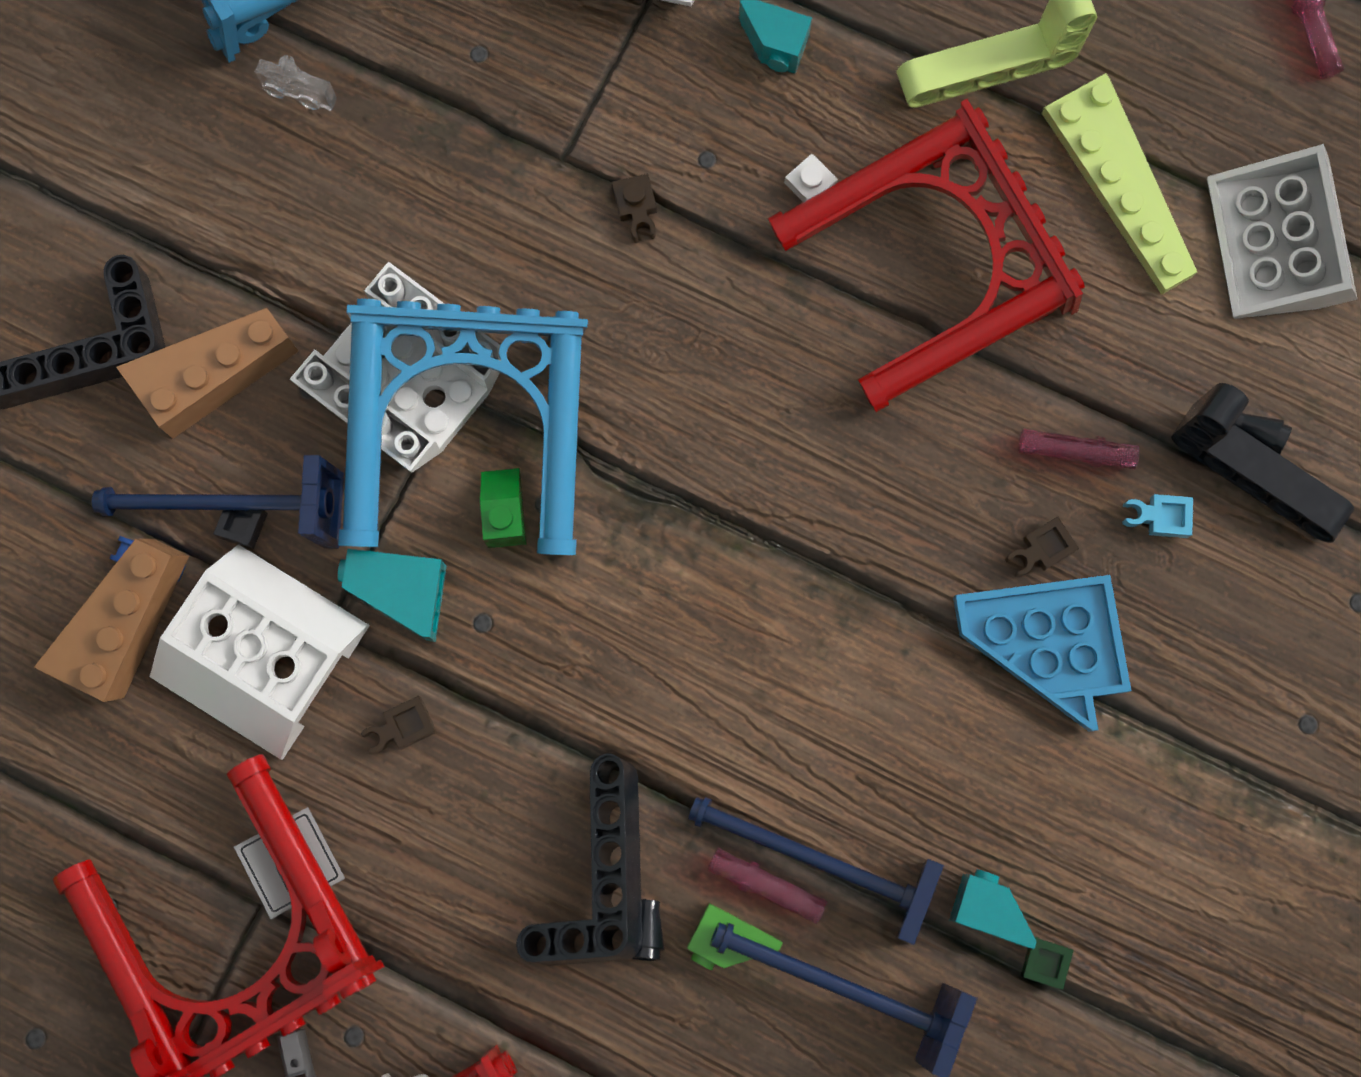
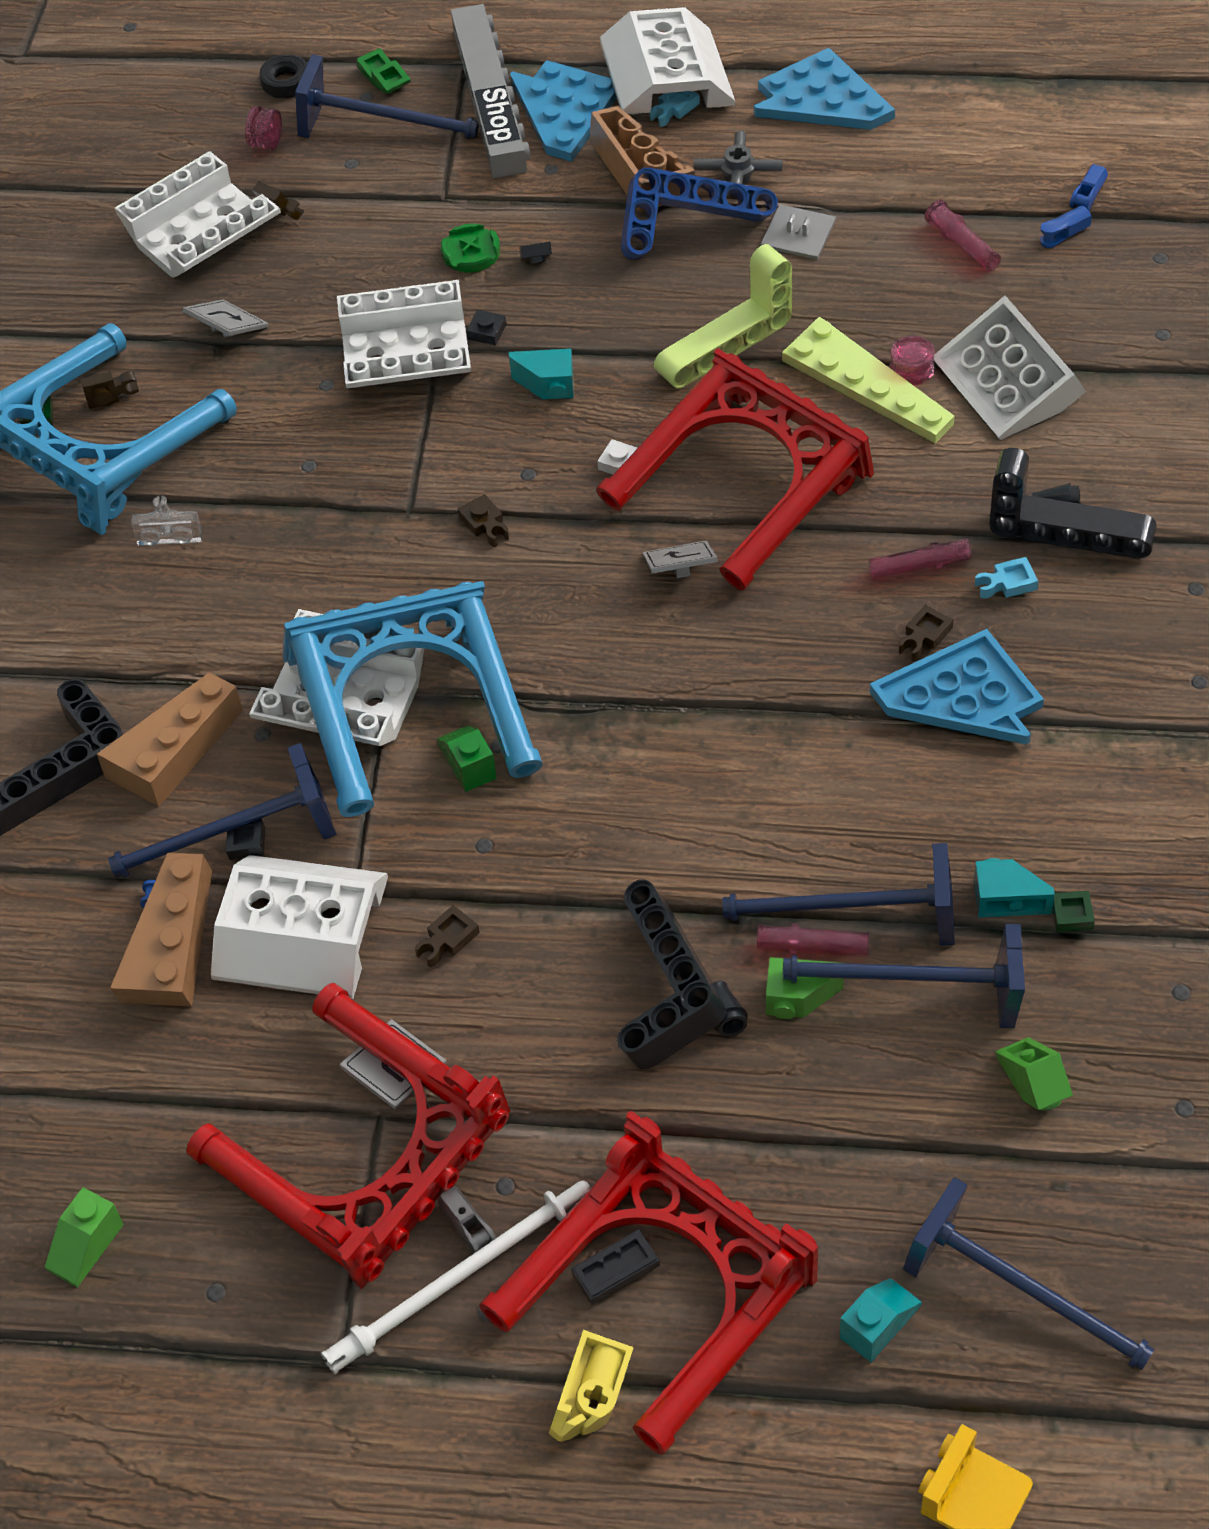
camera: 15 degrees left, 25 degrees down
(397, 586) = (399, 837): teal slope -> none
(821, 346) = (680, 558): none -> light grey piece
(1184, 175) = (913, 358): none -> clear pink wheel

